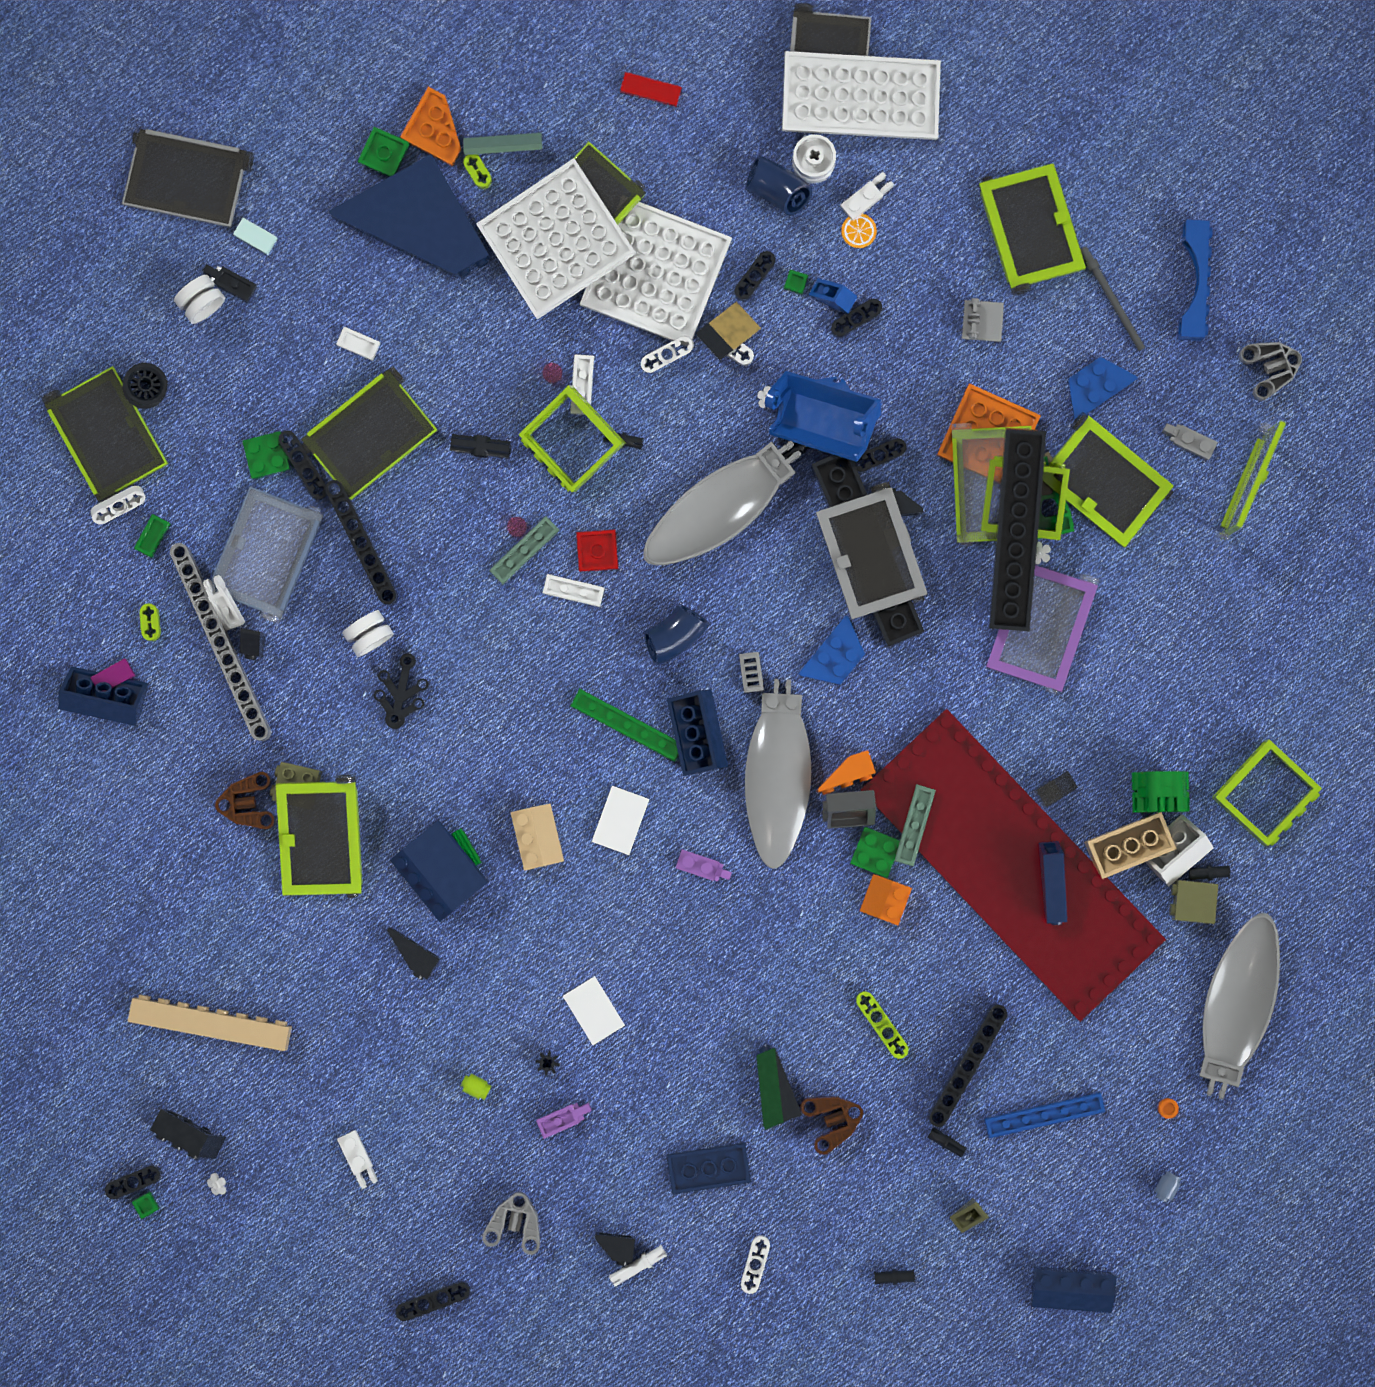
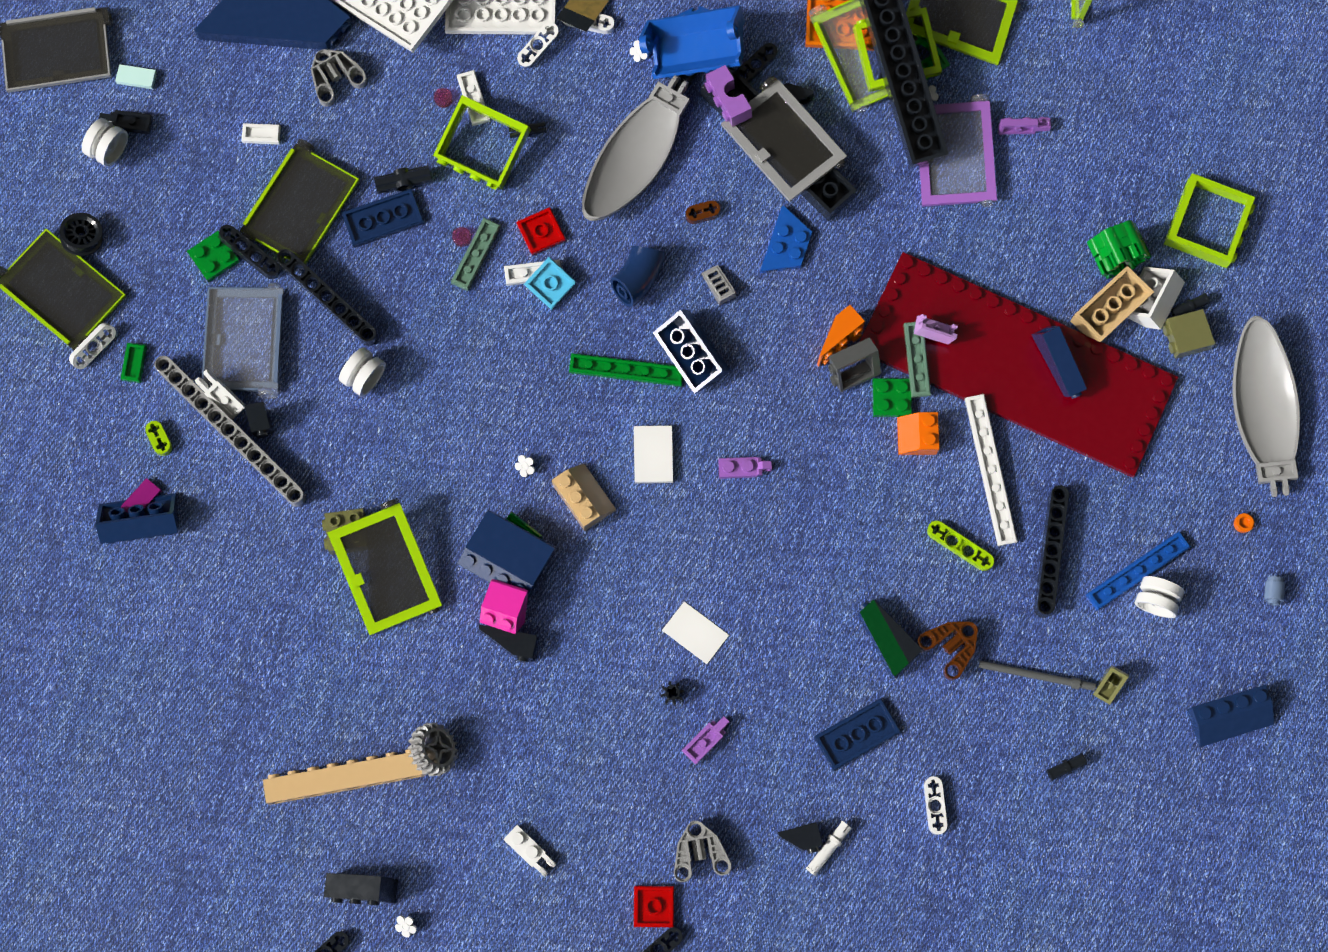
camera: 25 degrees left, 10 degrees down
(246, 785) = (298, 550): reddish brown connector -> none
(297, 1043) = (435, 753): none -> light grey gear
(400, 694) = (411, 417): black plant -> none
(418, 920) = (504, 606): none -> dark pink slope
(435, 308) = (345, 63): none -> light grey connector
(446, 477) = (382, 218): none -> dark blue tile
(453, 1255) = (654, 906): none -> red tile
(475, 1086) = (614, 741): lime brick -> none
(492, 785) = (524, 465): none -> white plant
(585, 609) = (550, 283): none -> medium azure tile
(764, 596) = (701, 208): none -> reddish brown beam
(778, 776) = (778, 363): light grey windscreen -> none
(834, 505) = (734, 108): none -> medium lavender arch
(936, 1200) = (1074, 682): none -> dark grey bar
(942, 962) = (990, 470): none -> white tile
(944, 803) = (935, 330): none -> lavender hinge
(946, 1142) = (1061, 627): black axle -> none
(1051, 1151) = (1159, 597): none -> white wheel
(1055, 789) = (1025, 286): clear smoke slope -> none
(1124, 624) = (1023, 126): none -> medium lavender hinge

